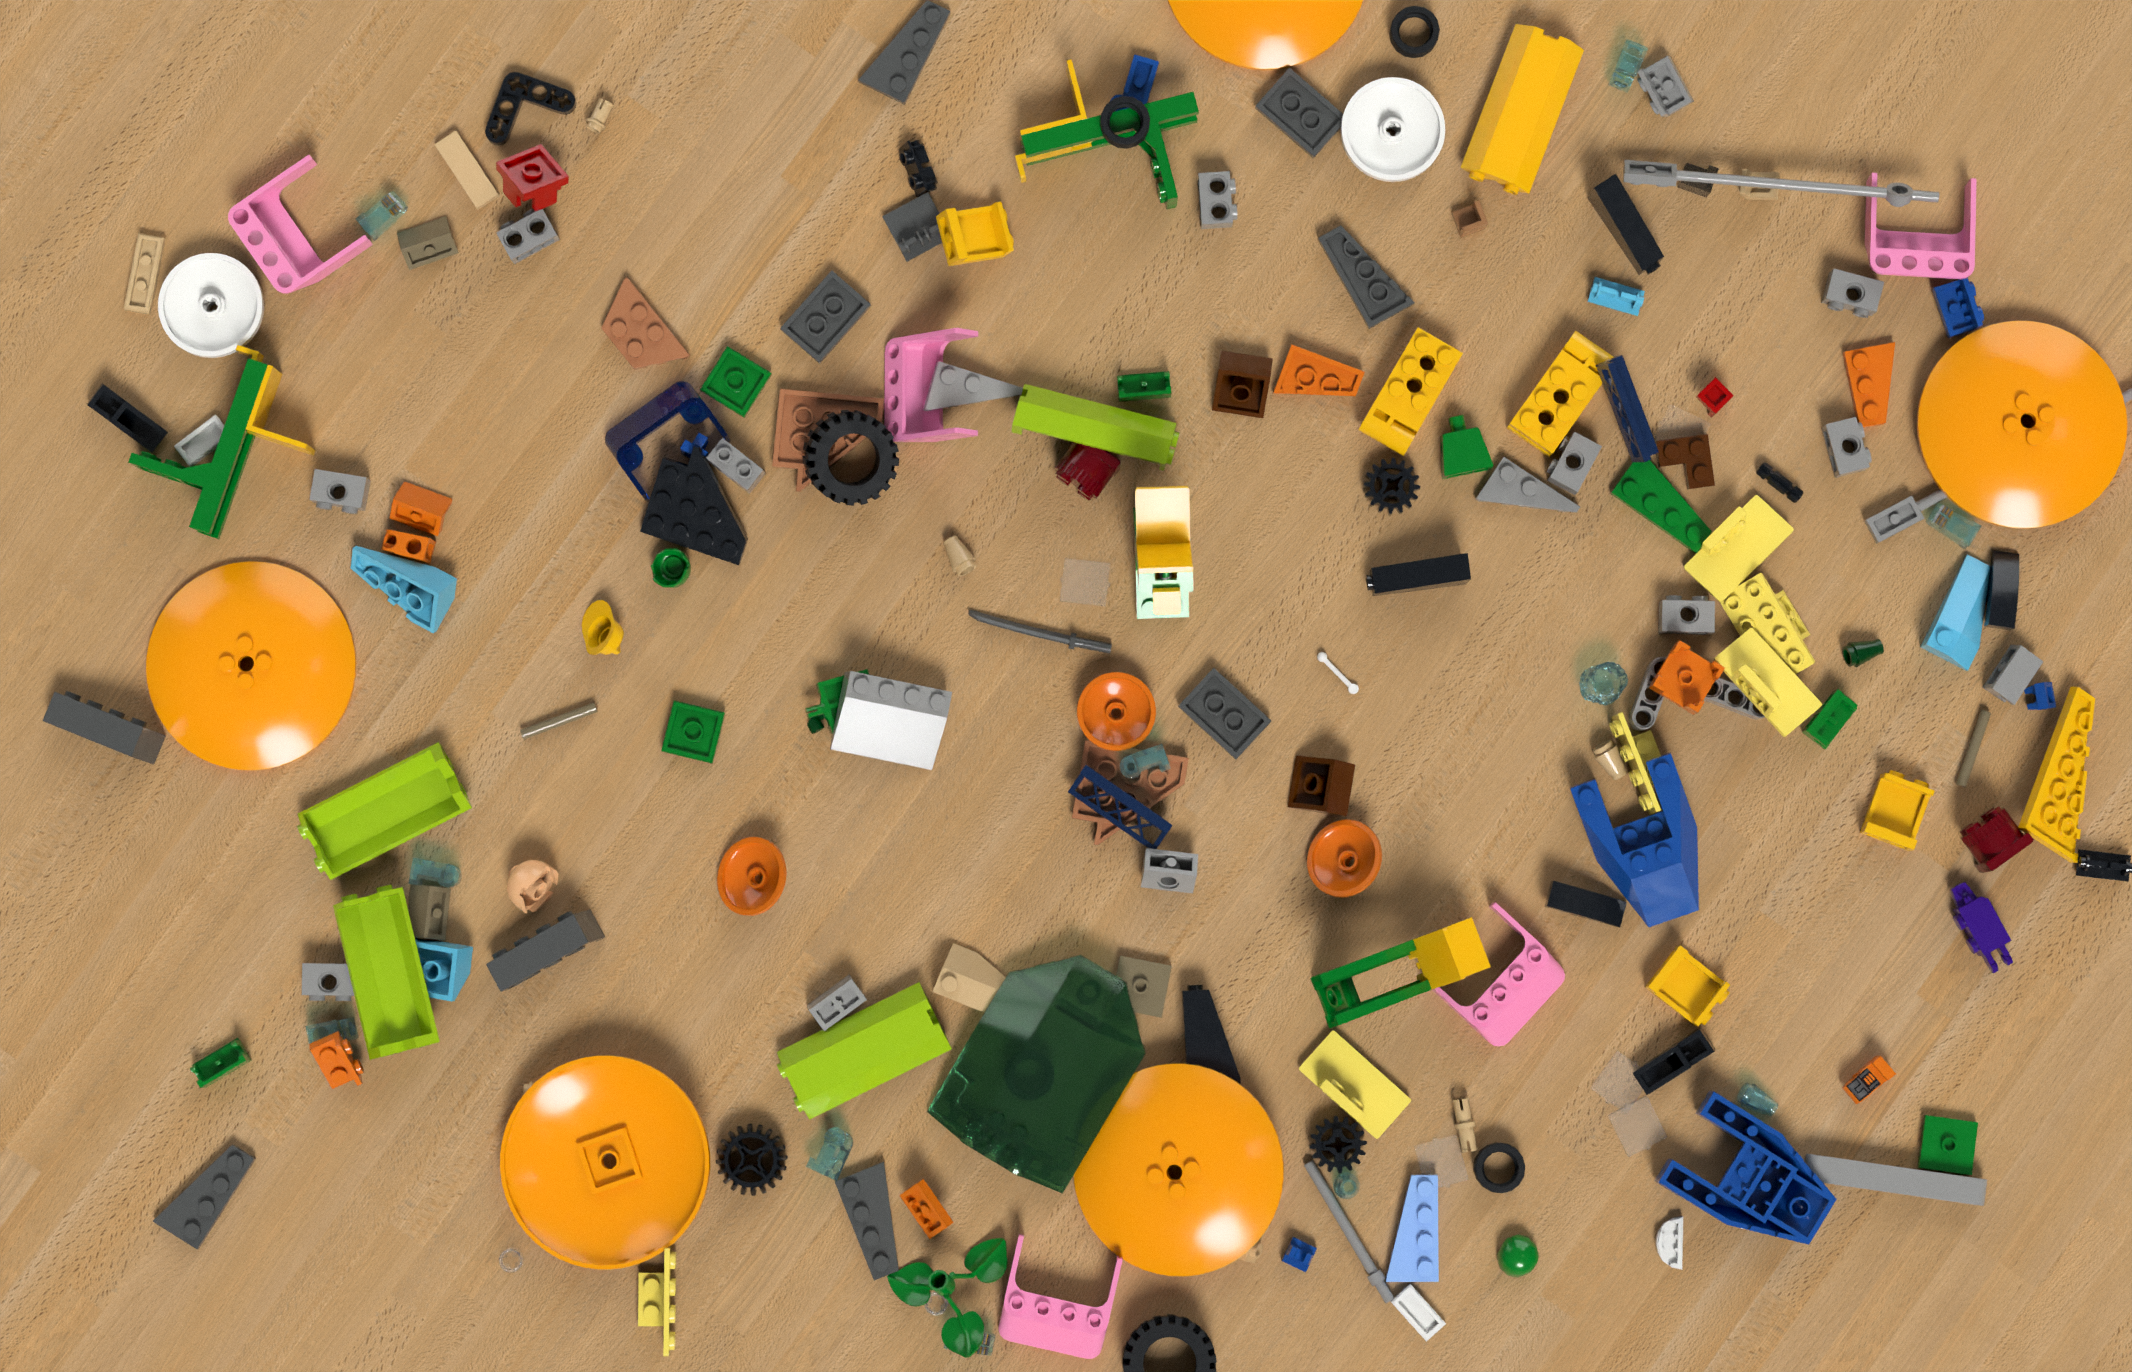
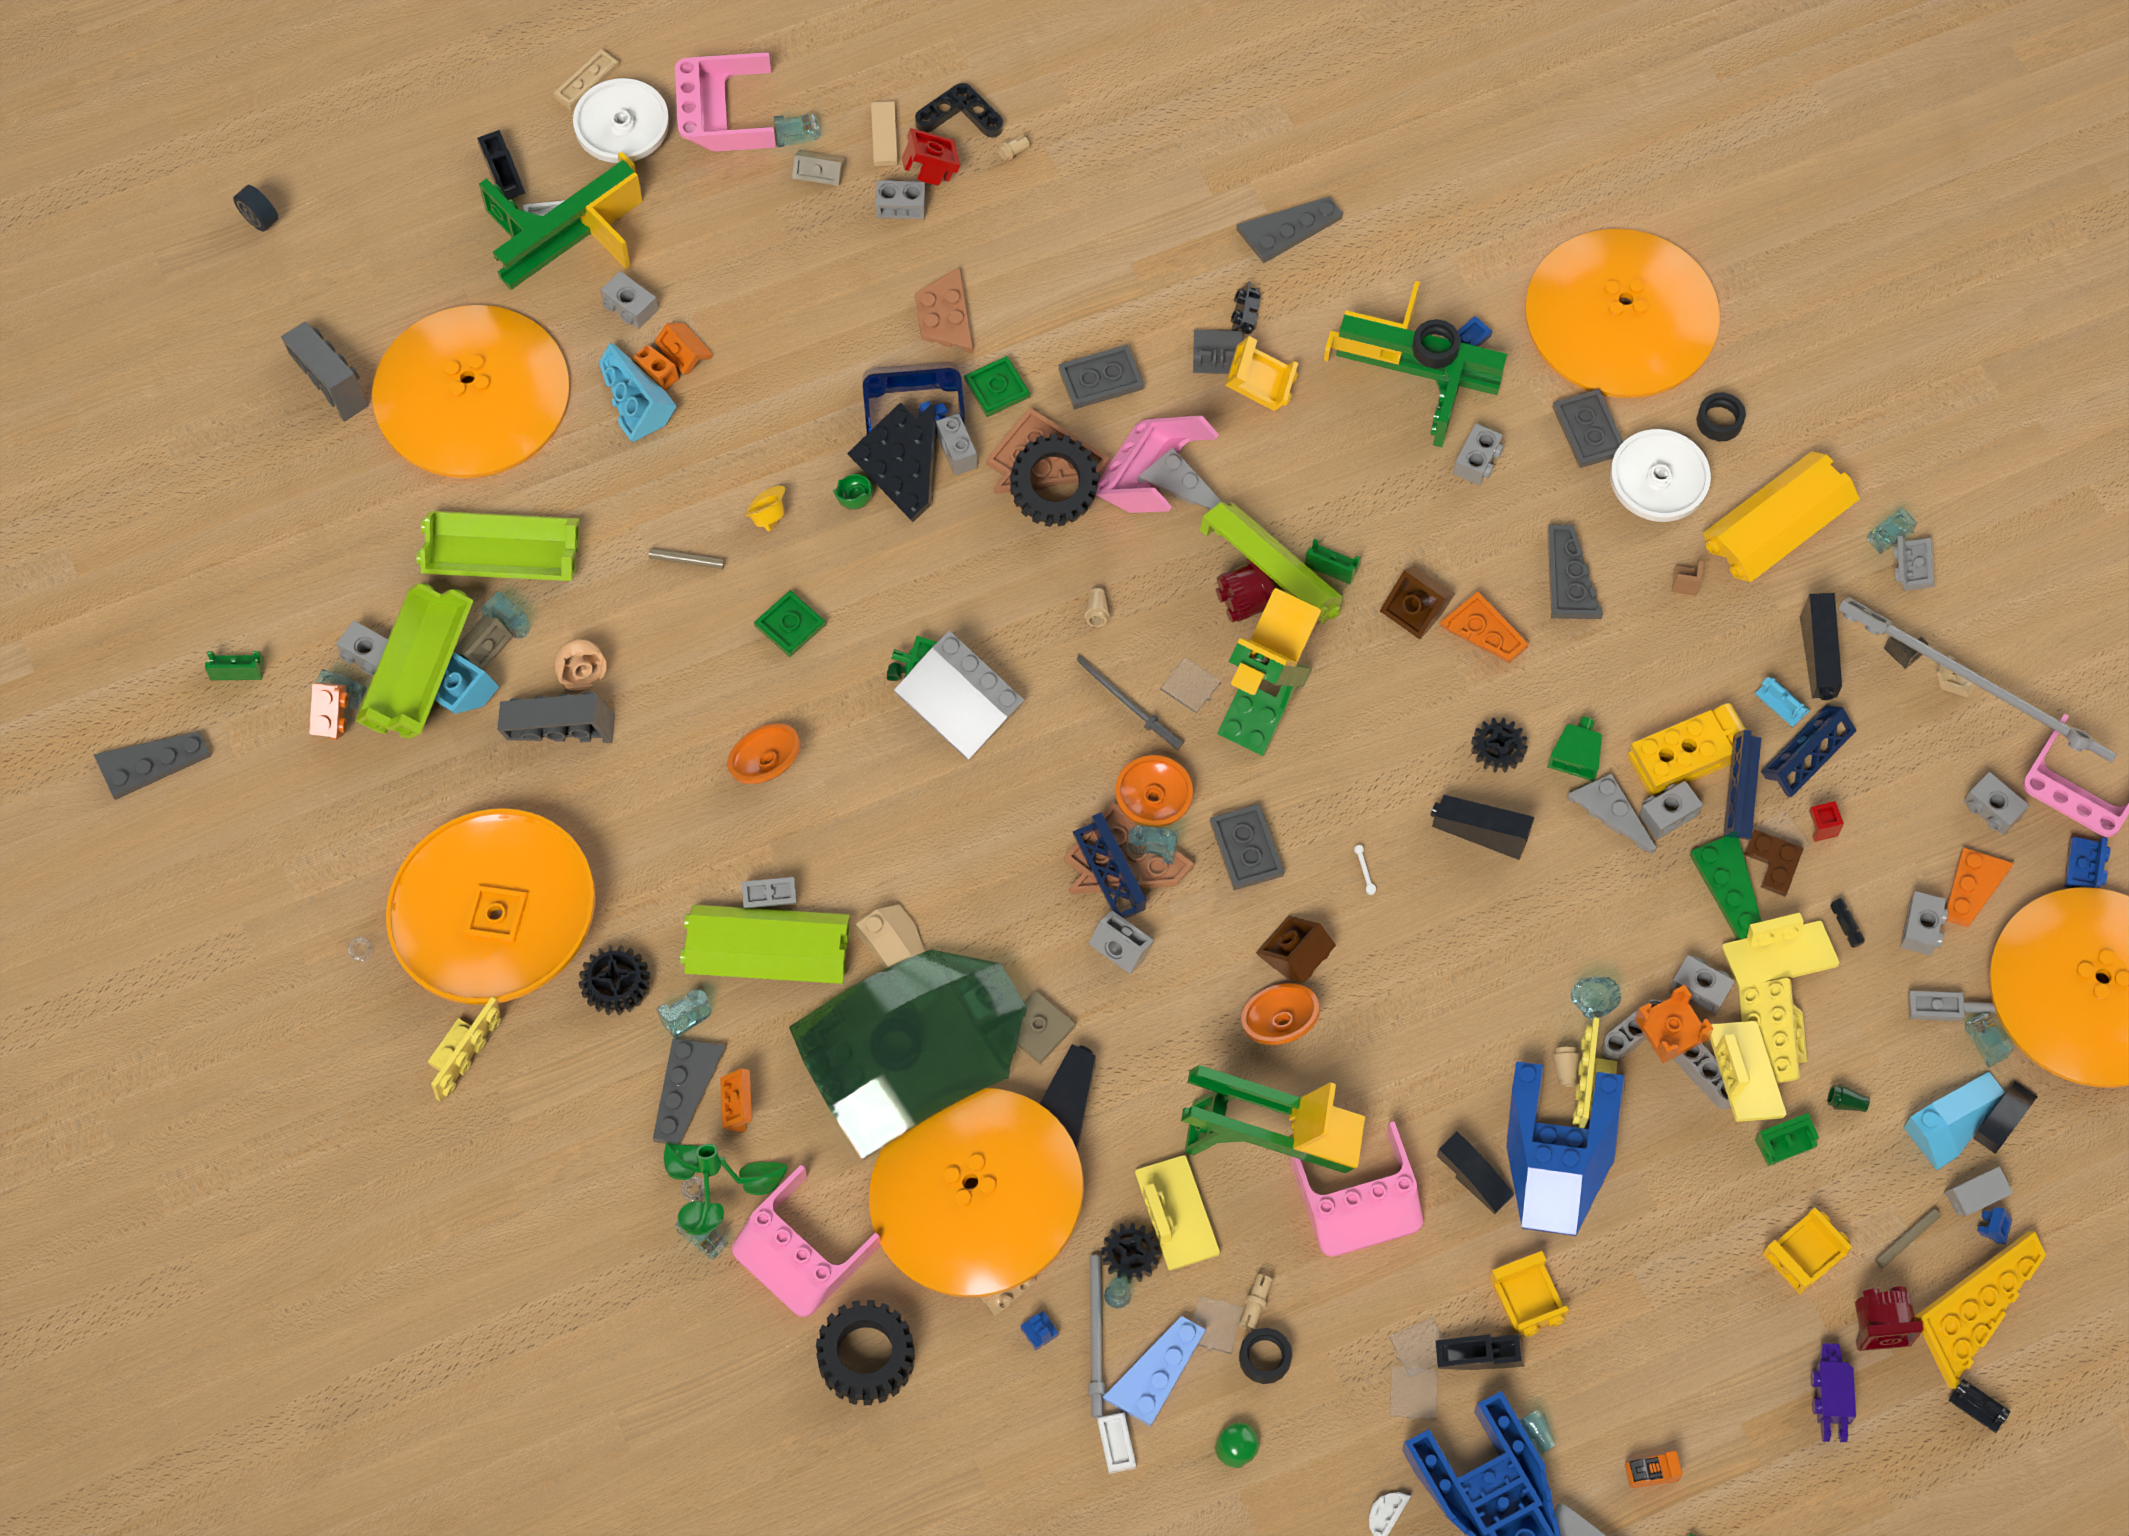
camera: 30 degrees right, 20 degrees down
(1397, 411) = (1560, 679): yellow hinge -> none
(1660, 328) = (1808, 740): none -> dark blue fence

